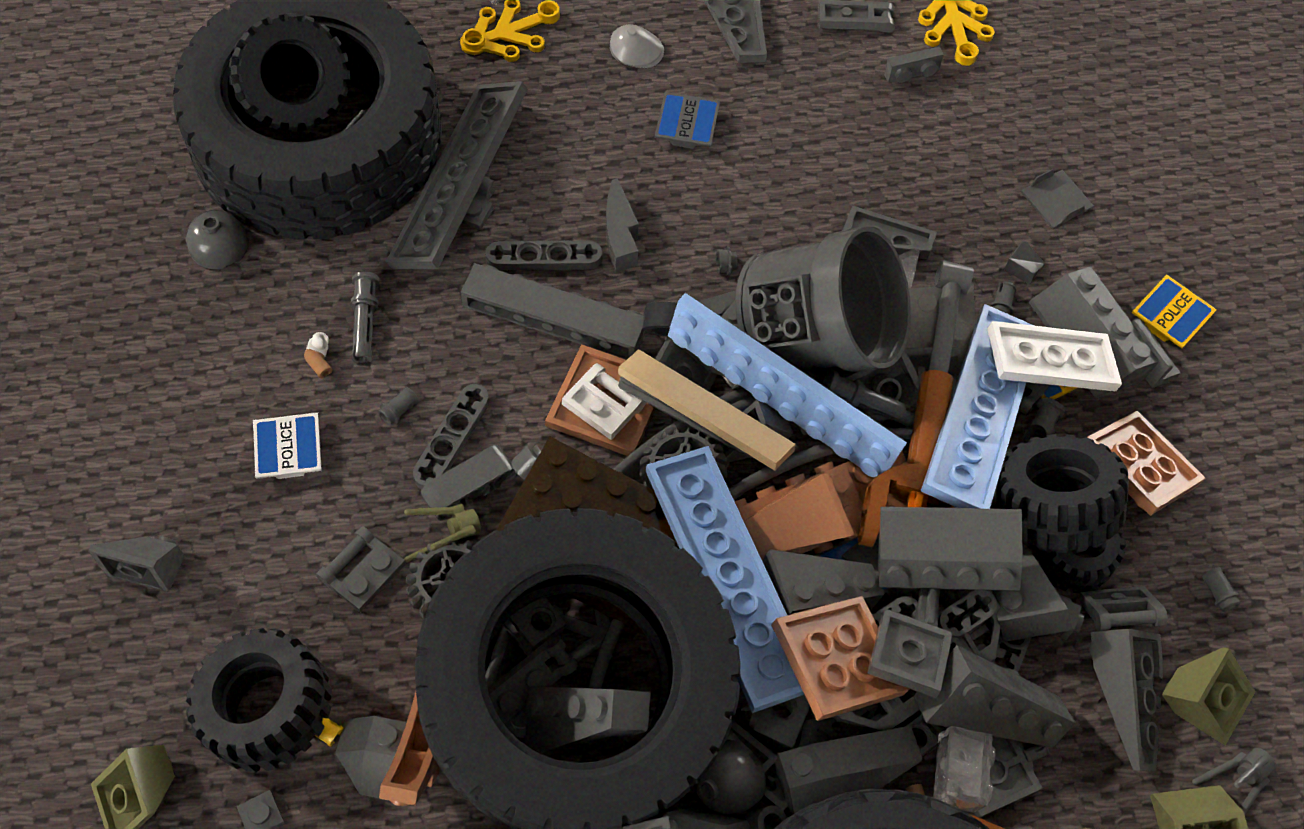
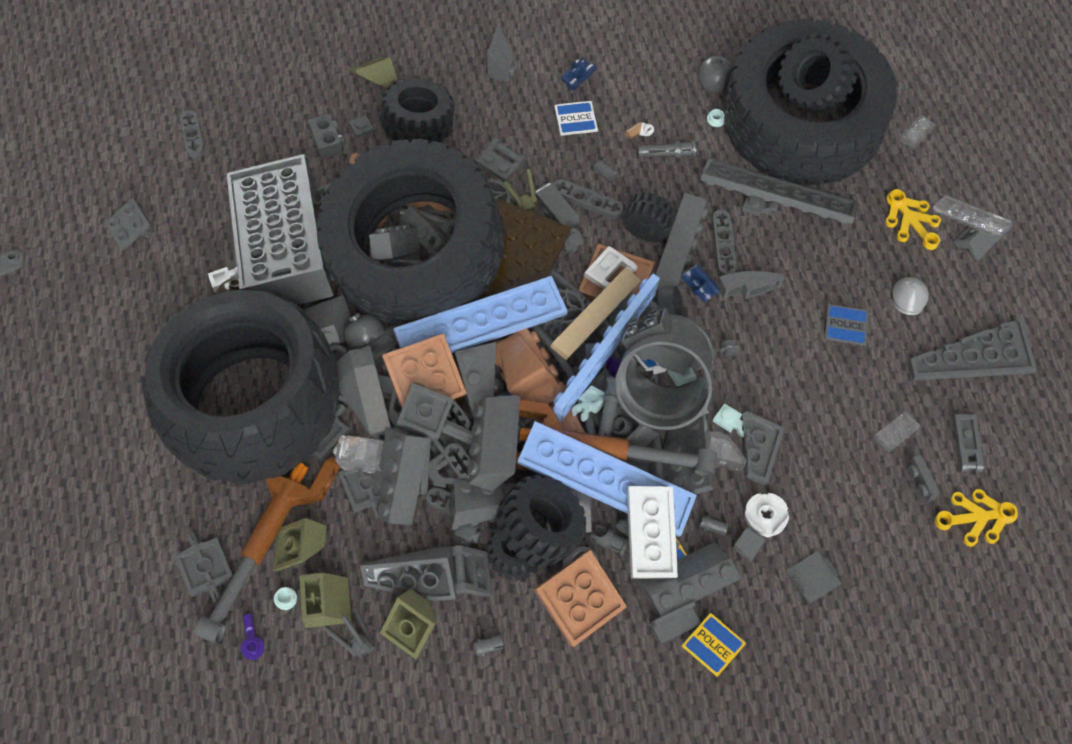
camera: 90 degrees right, 0 degrees up
(192, 437) = (578, 73): none -> dark blue hips
(302, 240) = (716, 113): none -> light aqua plate
(509, 339) = (649, 217): none -> black tyre
(623, 283) = (700, 283): none -> dark blue hips
(846, 85) = (897, 432): none -> clear plate
(975, 253) = (765, 503): none -> white plate

